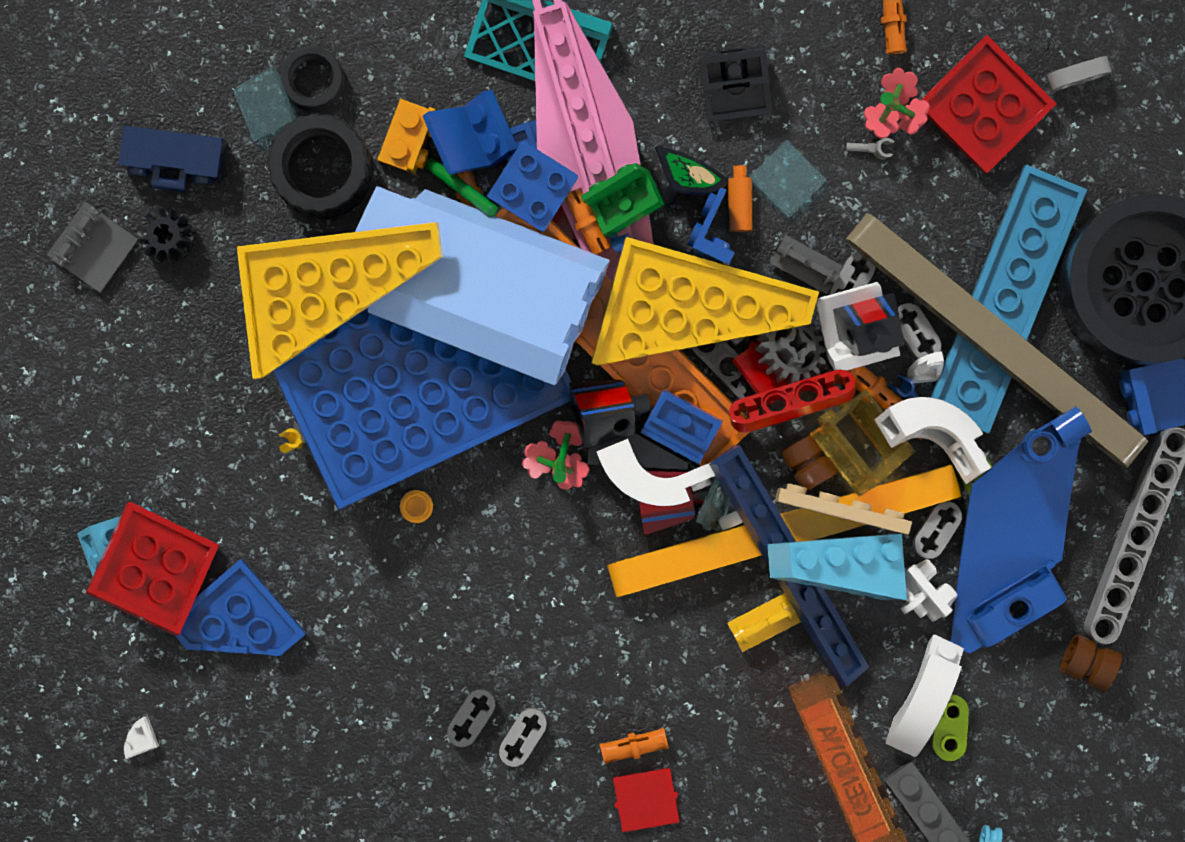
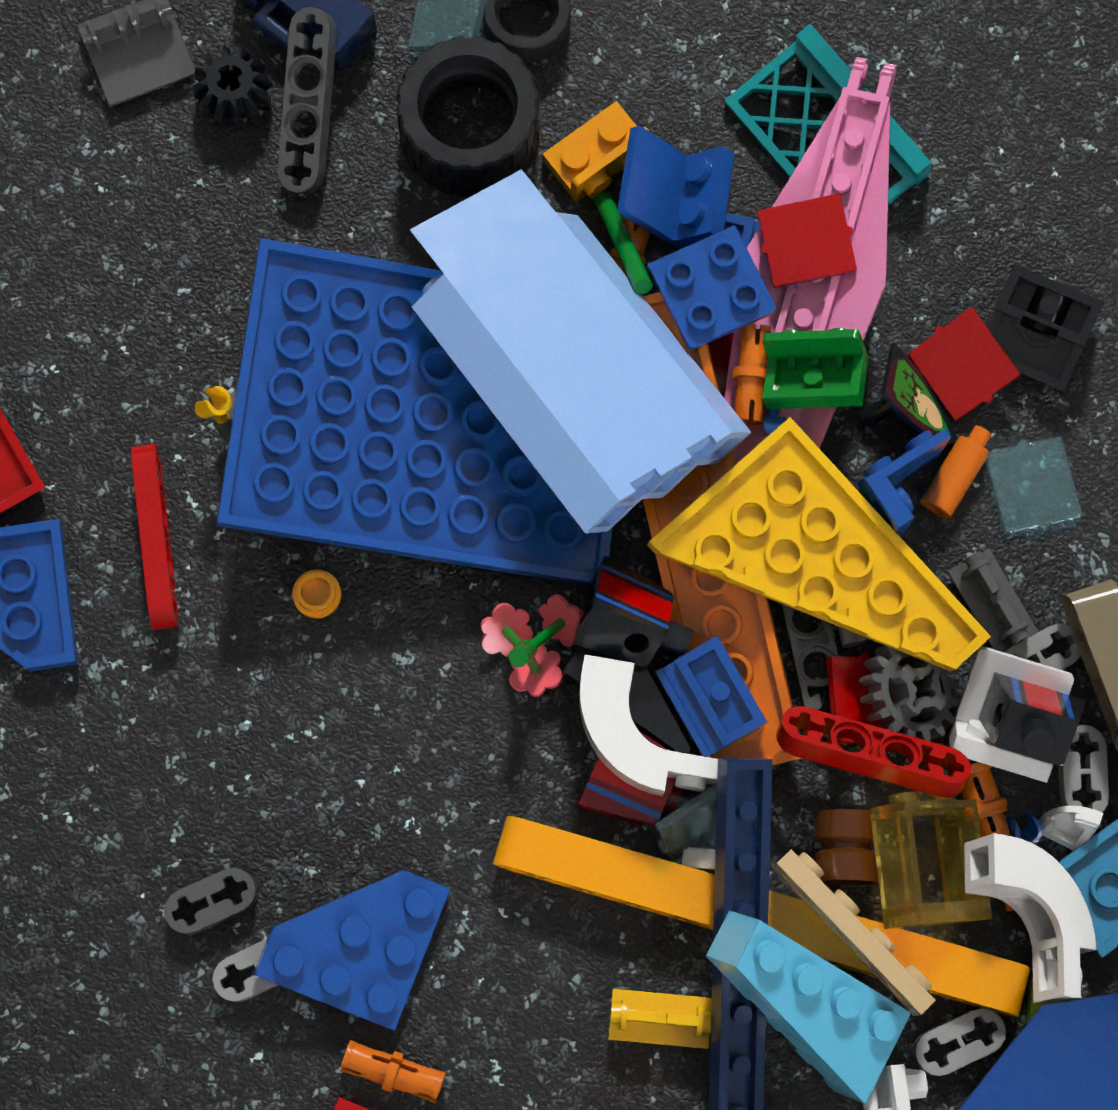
camera: 30 degrees right, 10 degrees down
(213, 220) = (314, 101): none -> dark grey beam
(301, 533) = (154, 536): none -> red beam
(316, 284) = (372, 230): yellow wing -> none
(569, 120) = (806, 240): none -> red piece
(572, 691) = (359, 947): none -> blue plate
(704, 132) = (964, 364): none -> red piece

